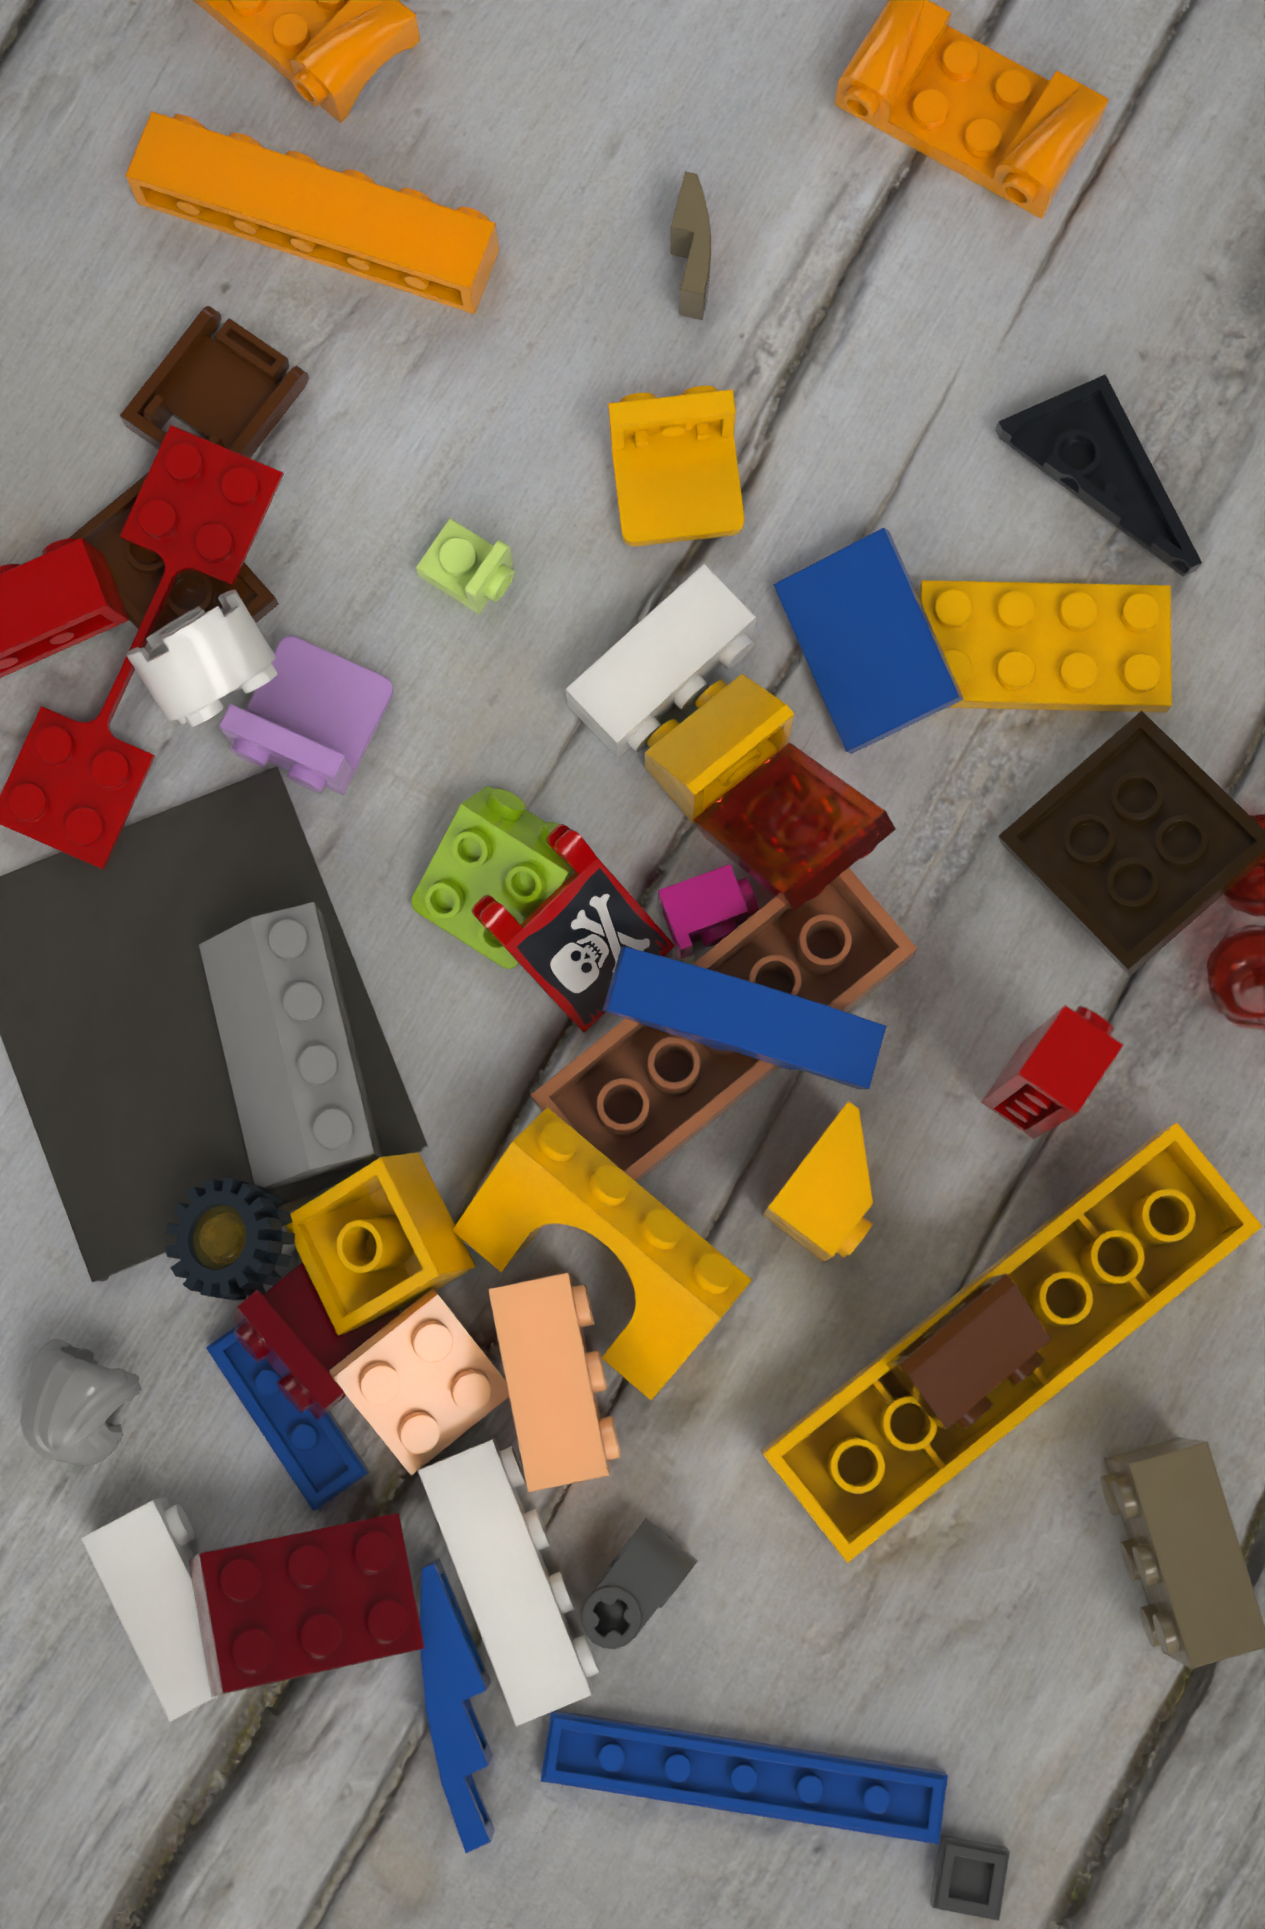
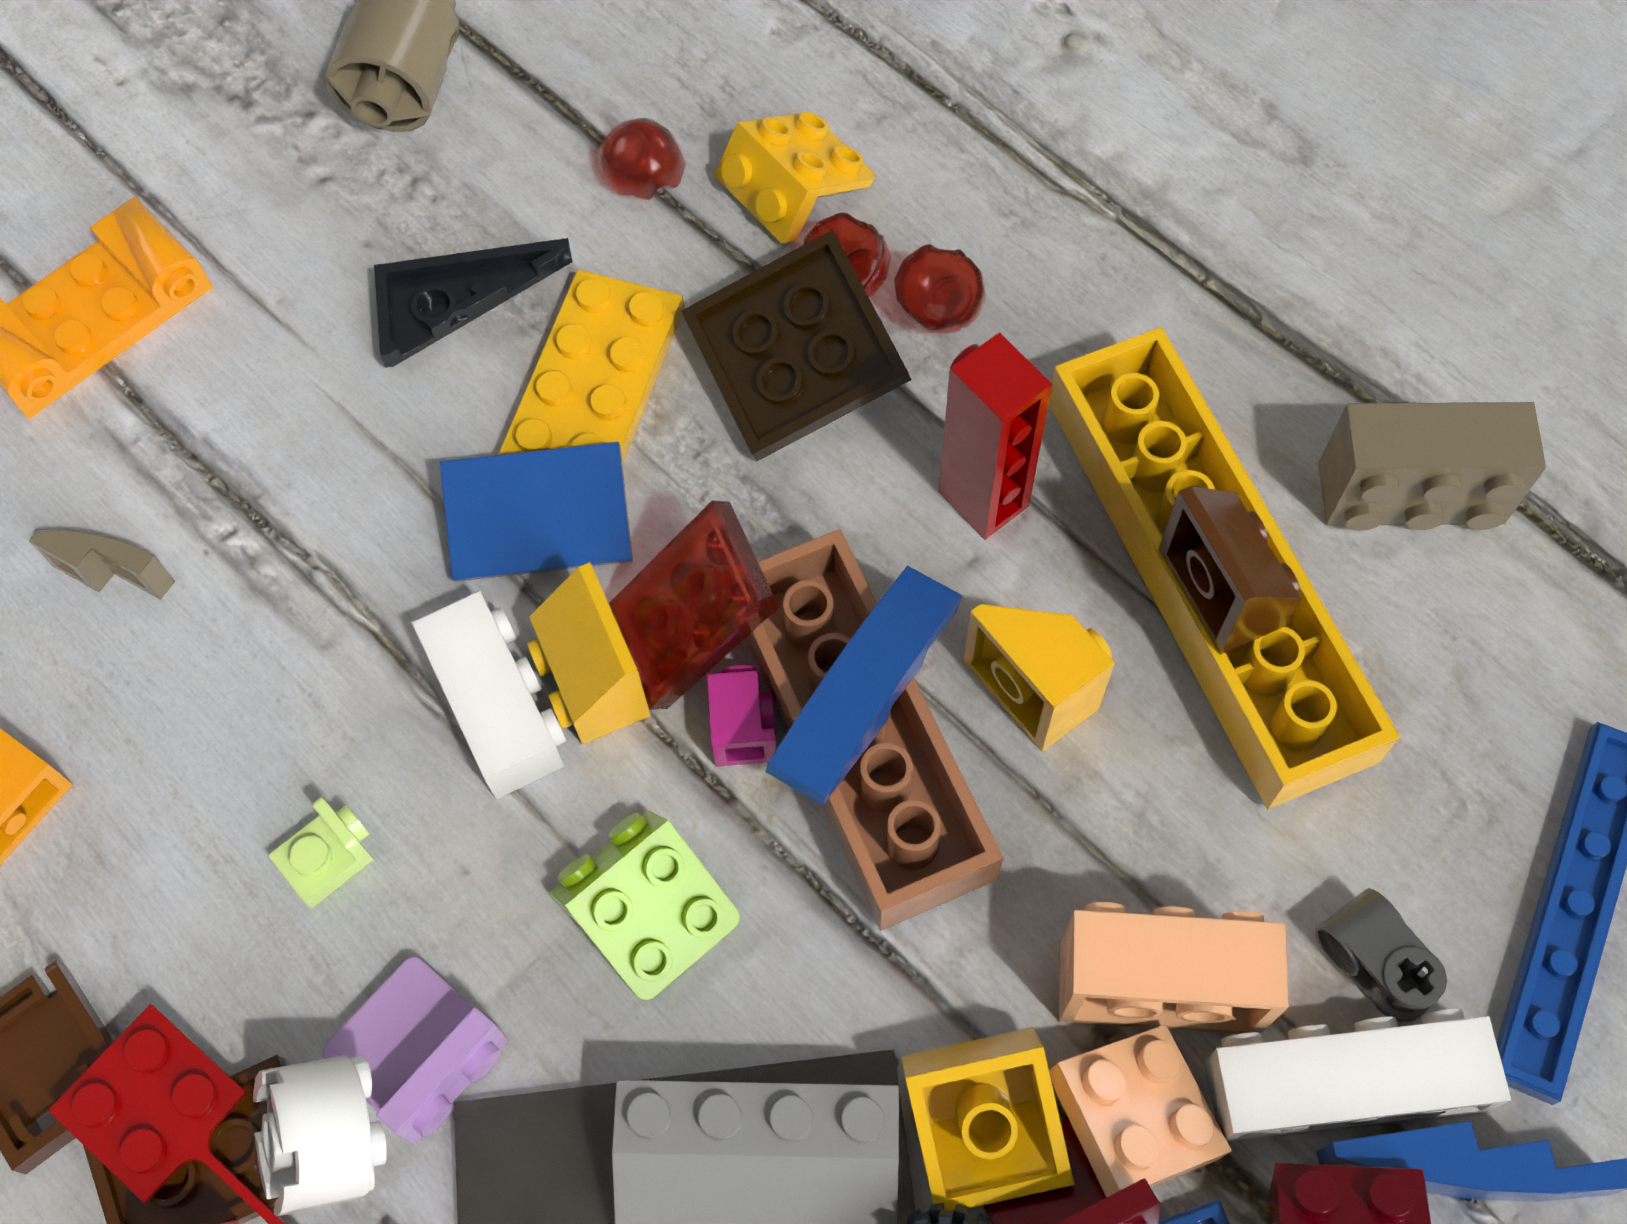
camera: 75 degrees left, 15 degrees down
(576, 932) = (734, 831): flag -> none
(676, 466) = (304, 632): yellow bracket -> none
(676, 1274) = (976, 896): yellow arch -> none

